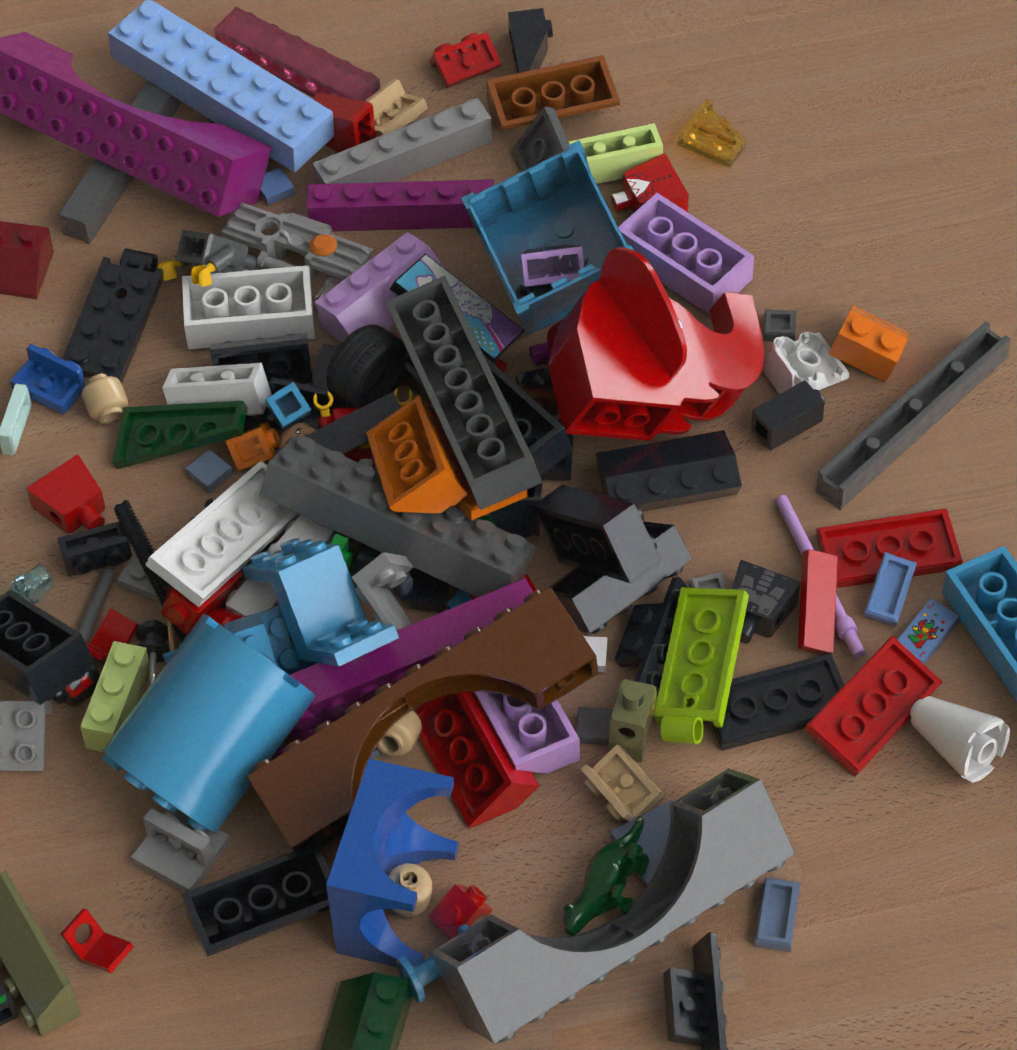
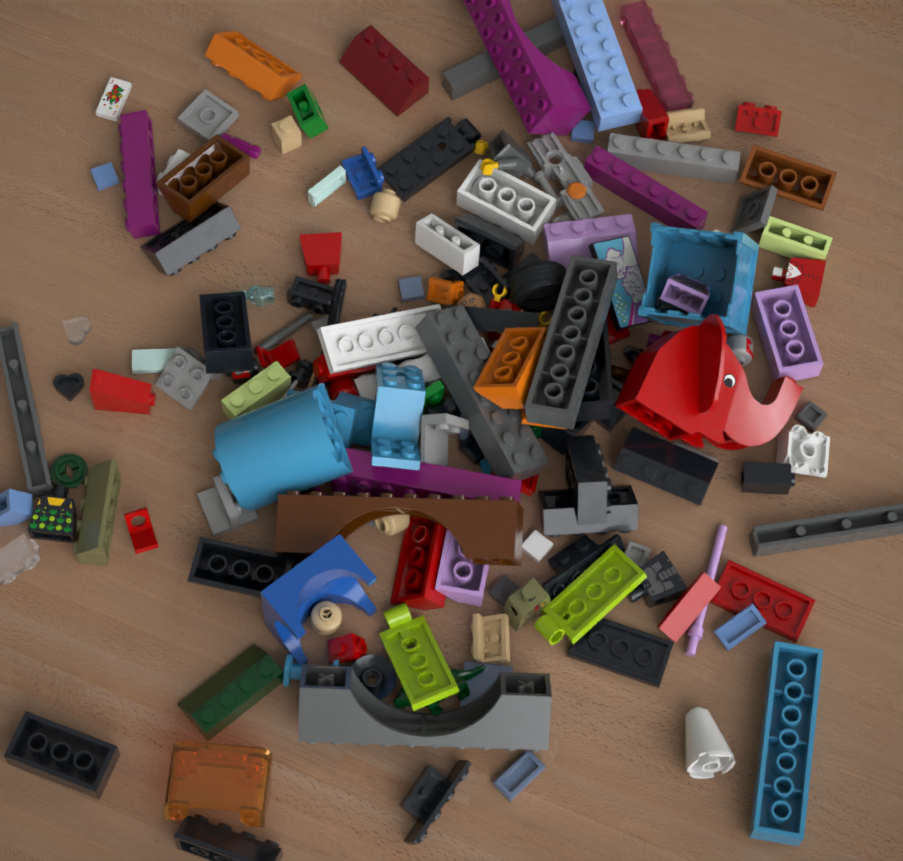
camera: 30 degrees right, 10 degrees up
(175, 428) = (406, 250): dark green wing -> none
(287, 406) = (476, 281): dark azure brick -> none
(523, 907) = (379, 668): none -> black dish
(529, 38) = (805, 132): black slope -> none
(571, 864) = (421, 668): none -> lime hinge
(711, 136) = (868, 266): clear yellow wing -> none
(869, 343) = (854, 463): orange slope -> none
(872, 706) = (671, 691): red tile -> none
(928, 630) = (740, 668): medium blue tile -> none

